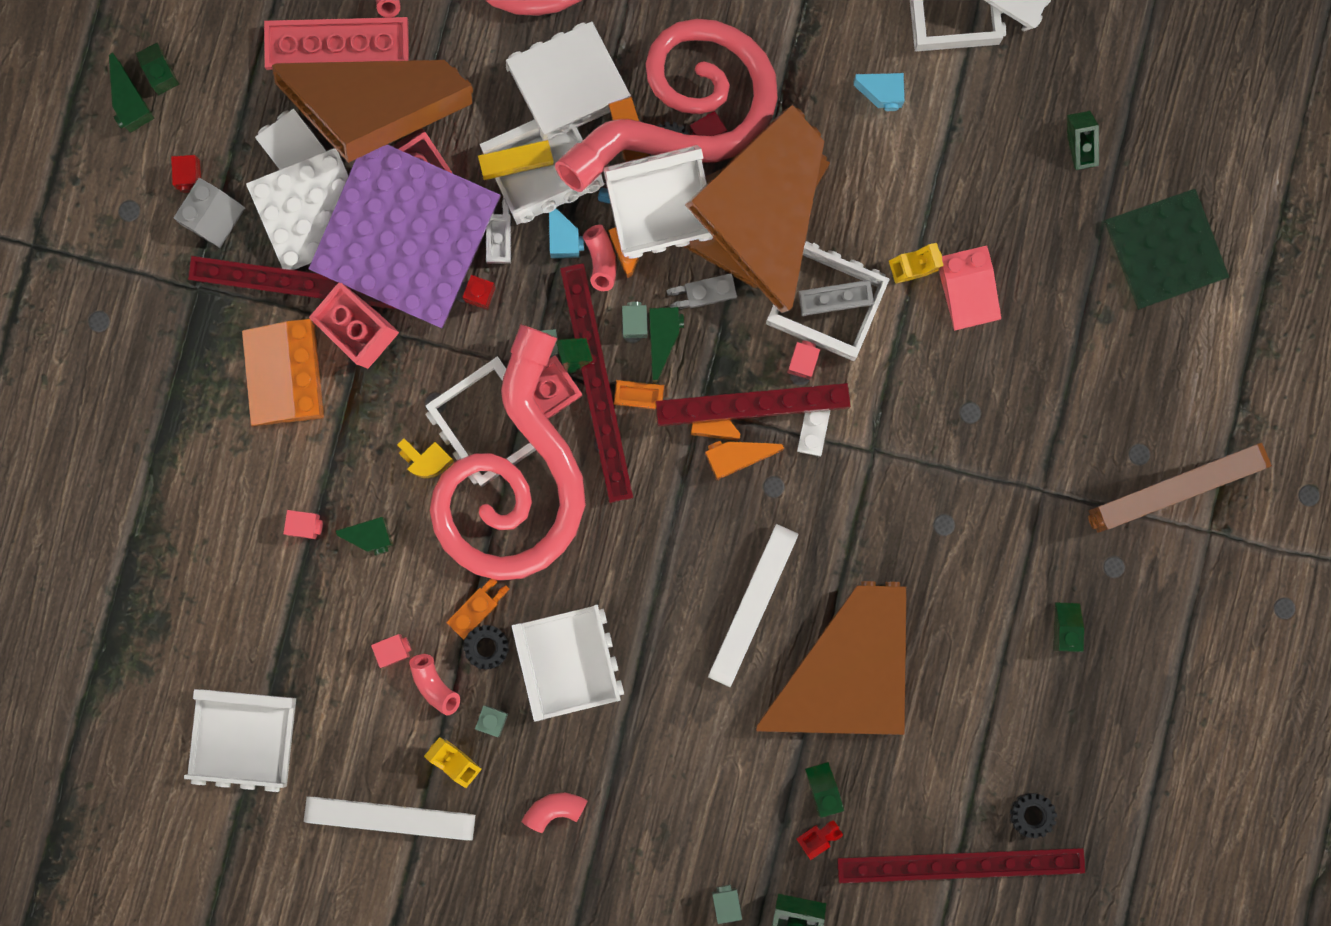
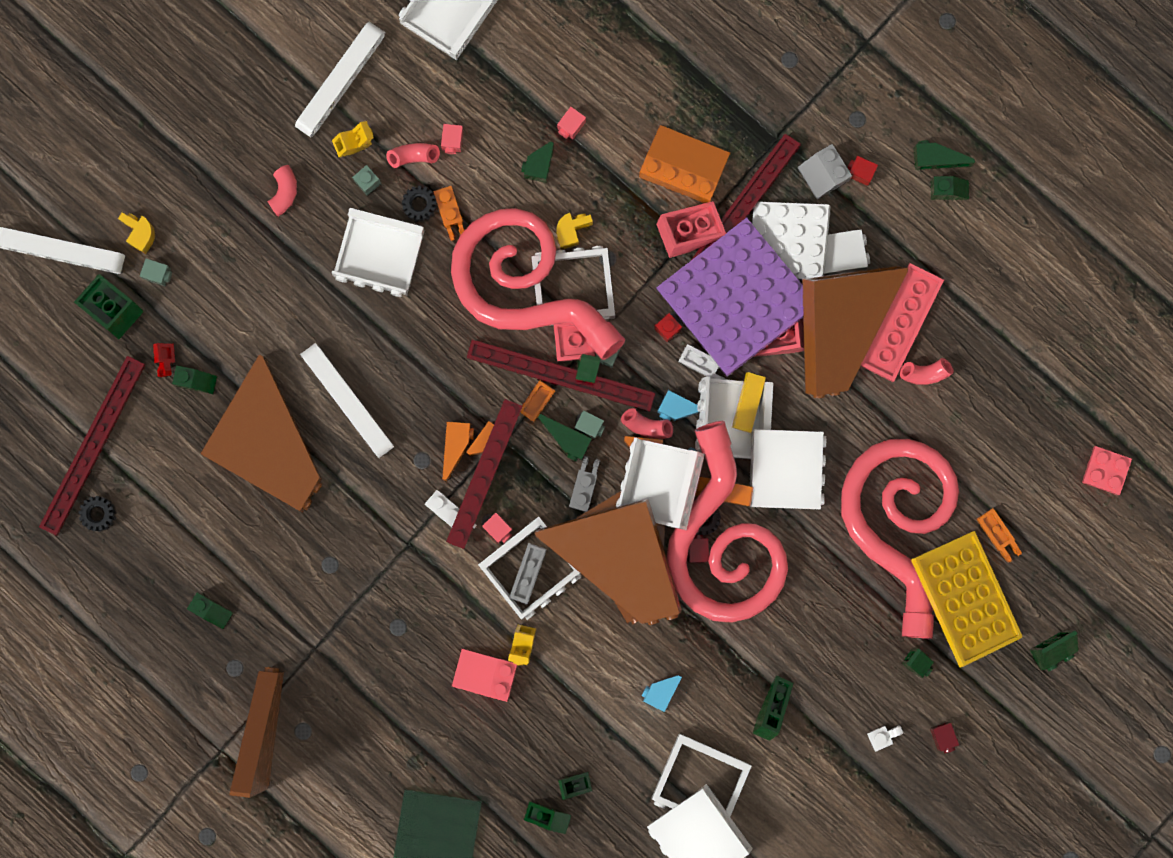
camera: 125 degrees right, 0 degrees up
(1033, 130) = (574, 785): none -> dark green slope

